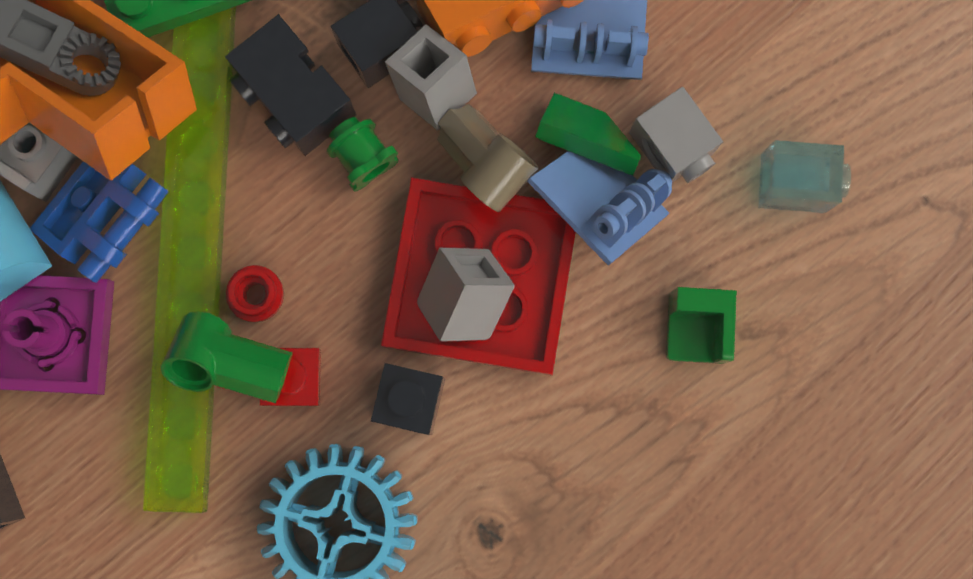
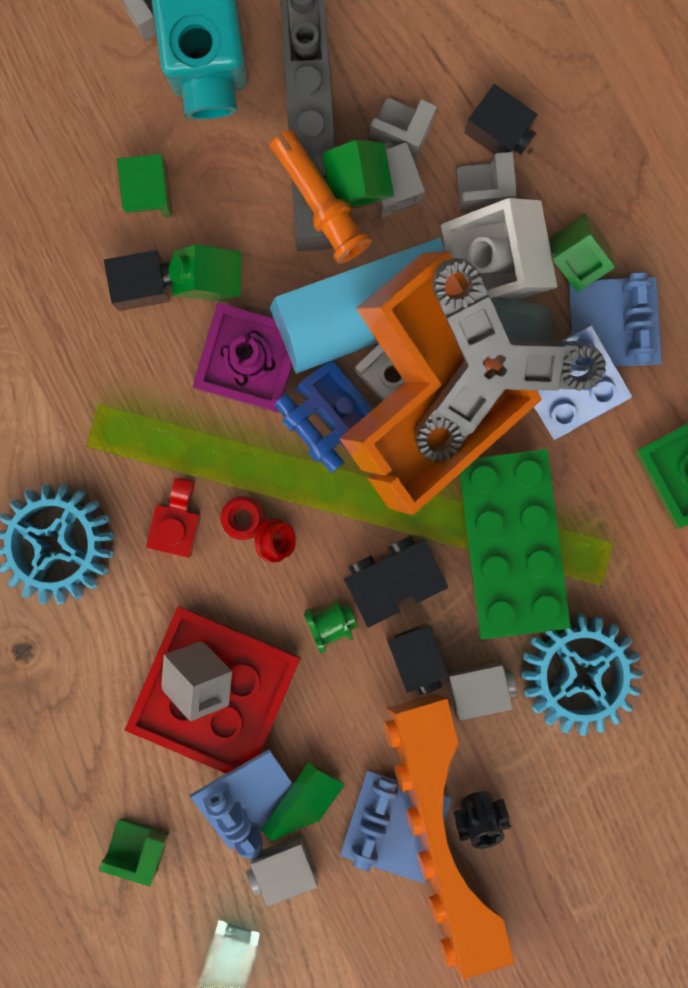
camera: 100 degrees right, 5 degrees up
(209, 355) = (193, 481): green piece -> none
(272, 245) = (274, 540): none -> red plate
(408, 399) = (131, 618): black brick -> none
(431, 75) = (372, 694): light grey brick -> none
(490, 161) = (291, 725): dark tan piece -> none

